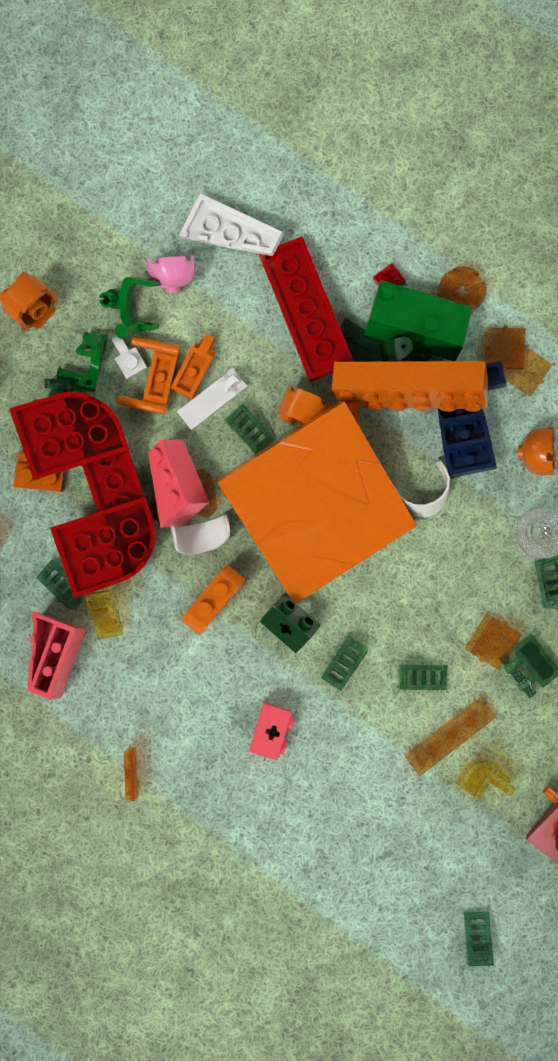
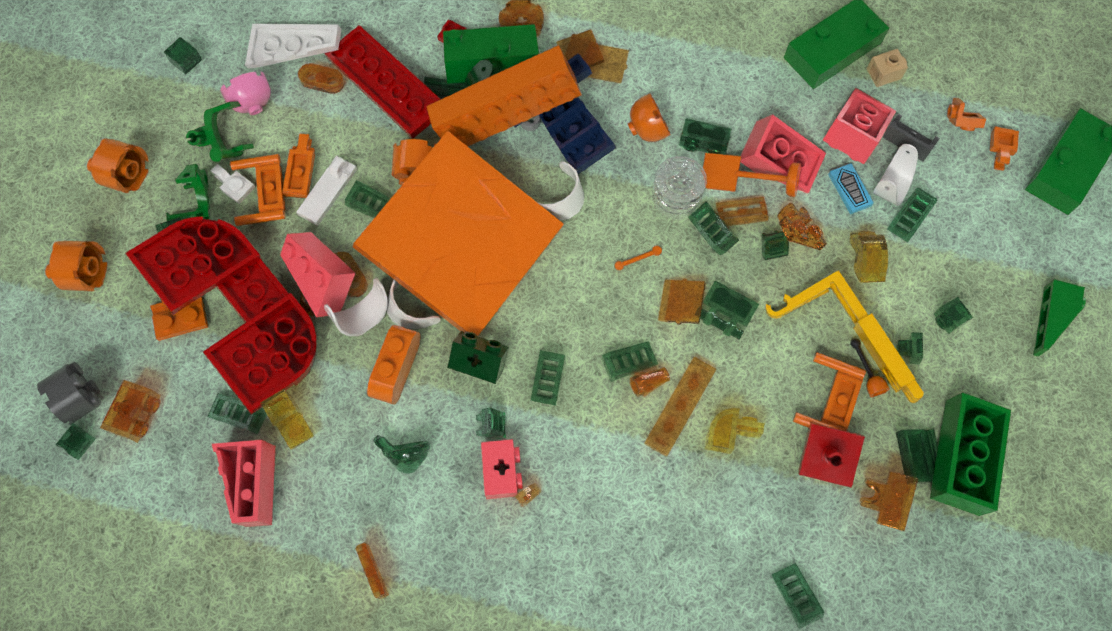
camera: 20 degrees left, 15 degrees down
(123, 196) = (182, 55): none -> clear green plate
(187, 679) = (404, 457): none -> clear green hat
(232, 552) = (404, 320): none -> white piece
(246, 279) = (322, 78): none -> clear orange plate
(279, 688) = (492, 424): none -> clear green tile
(285, 761) = (524, 497): none -> clear orange tile
(429, 704) = (648, 381): none -> clear orange cone
(491, 581) = (656, 250): none -> orange hinge

